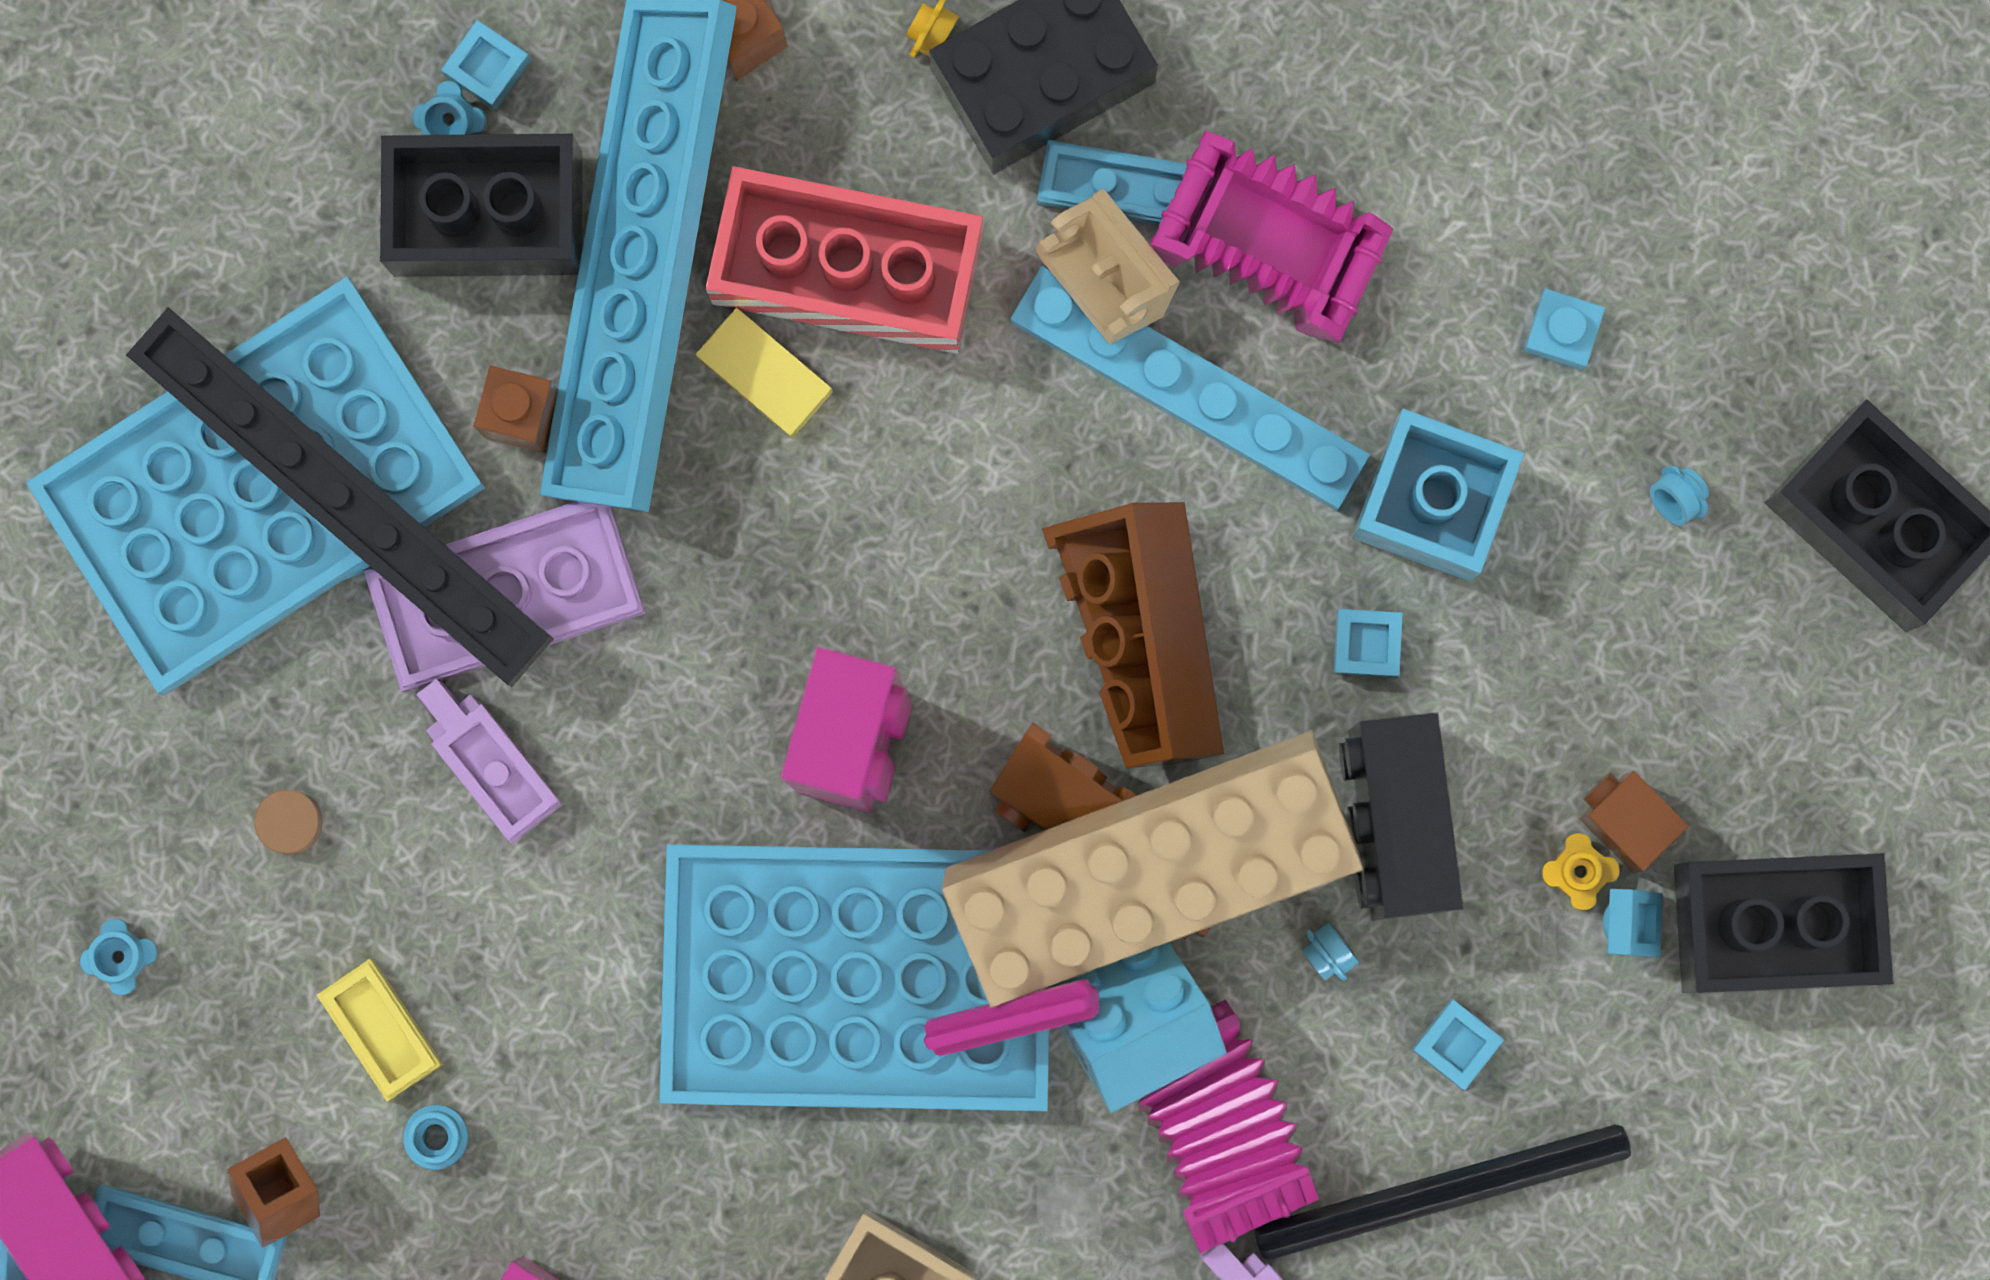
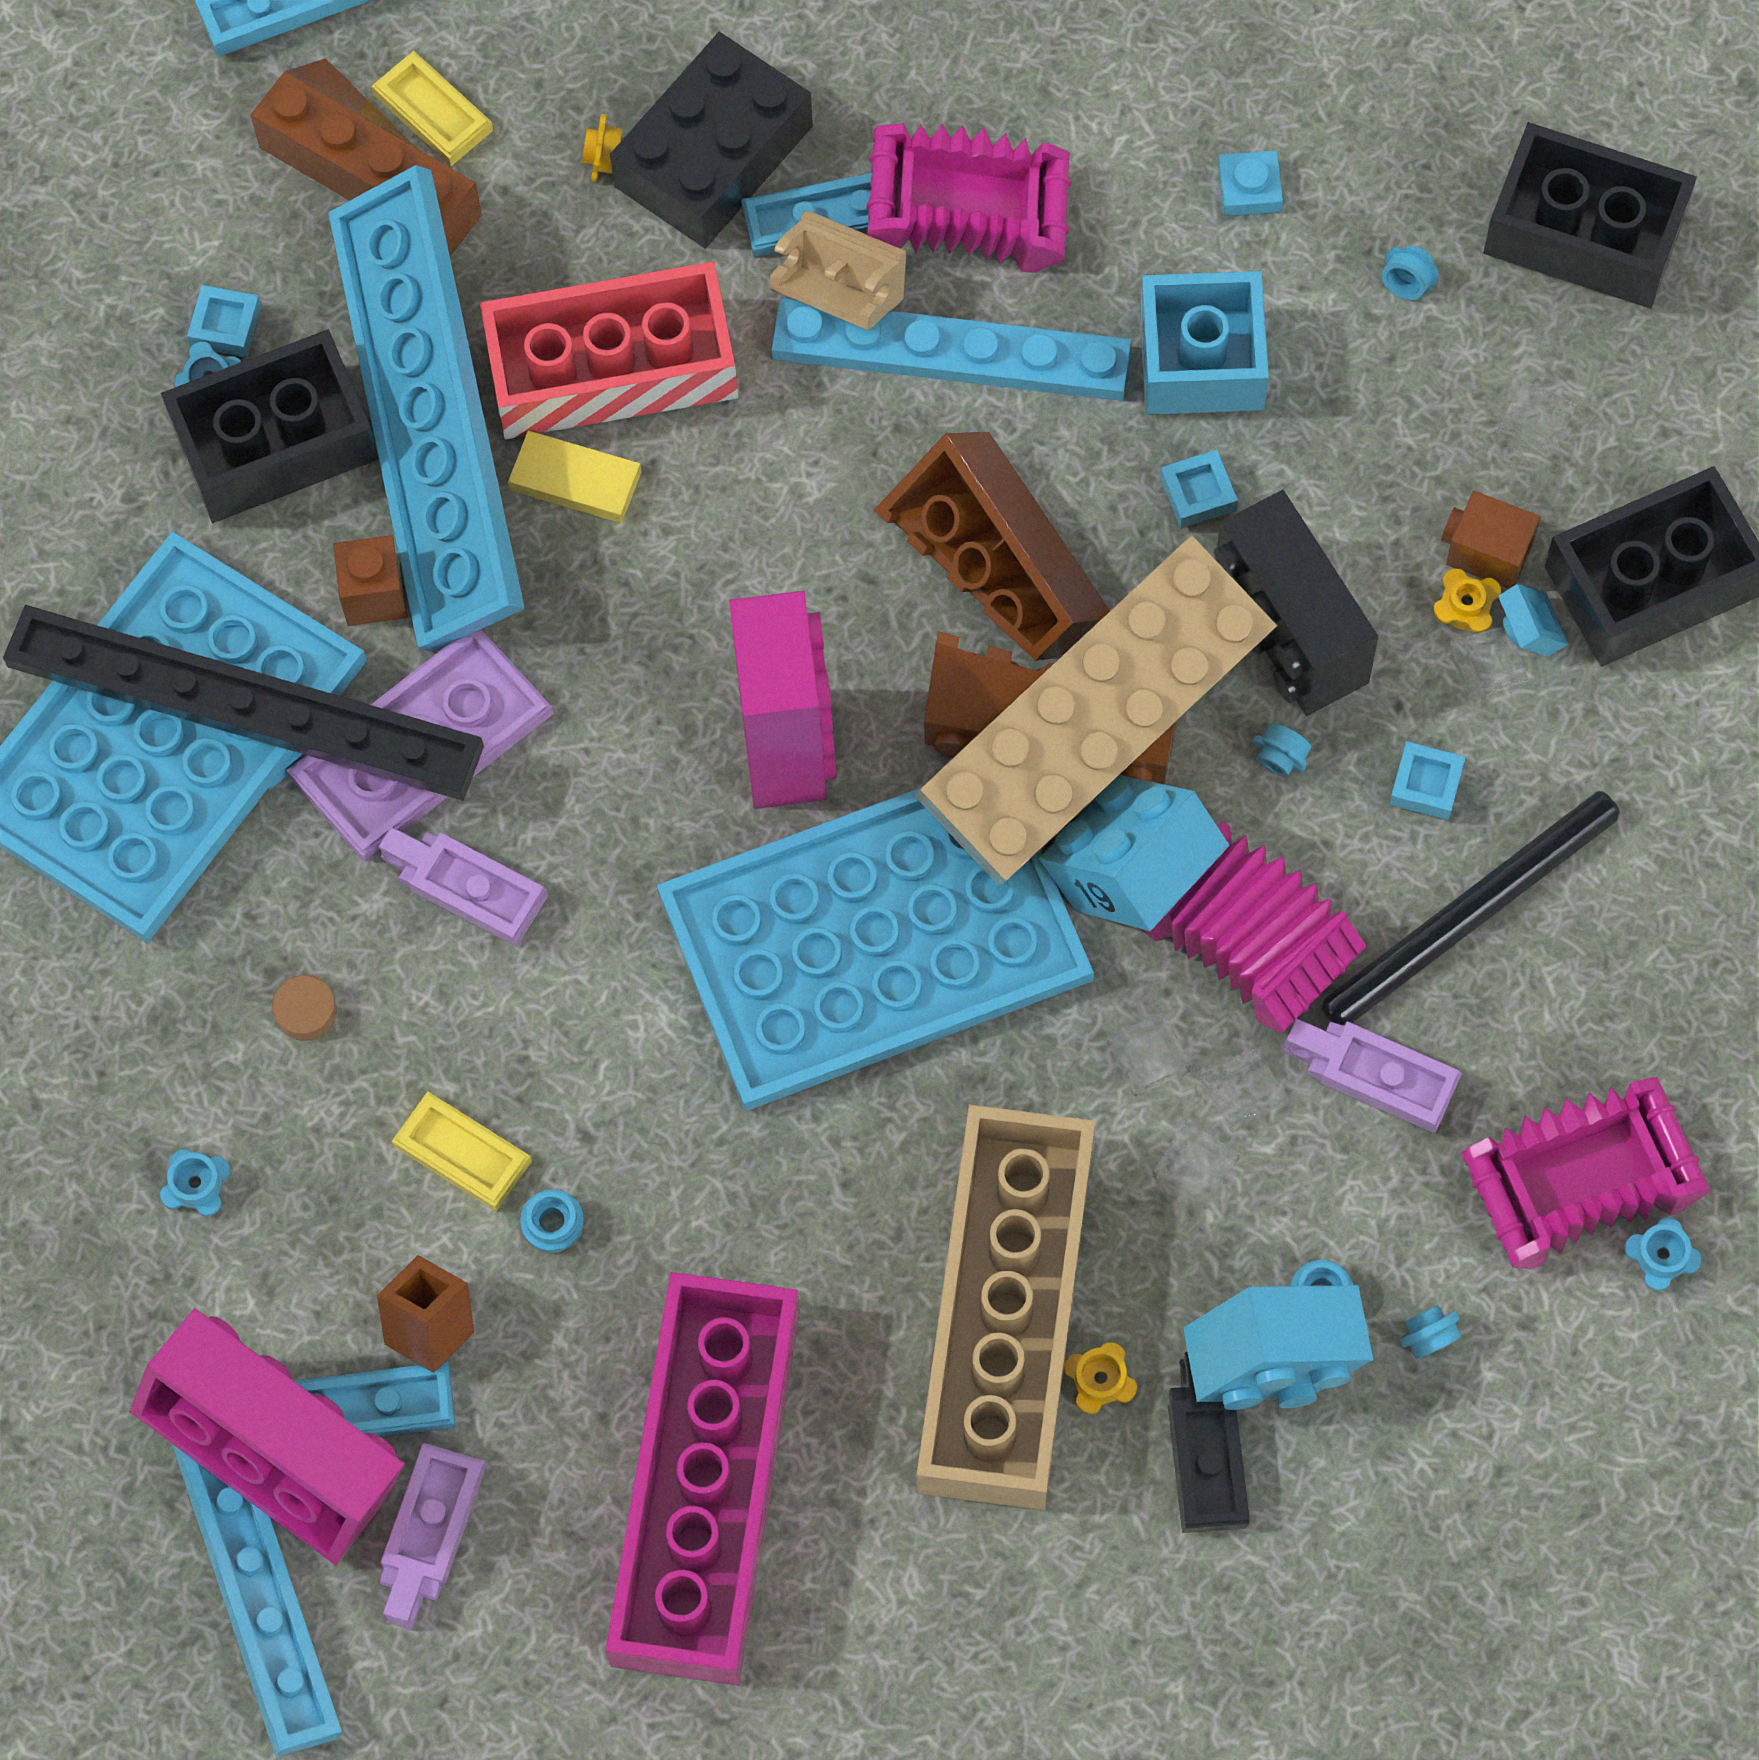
camera: 25 degrees left, 15 degrees down
(1013, 1018) = (1027, 887): dark pink axle -> none

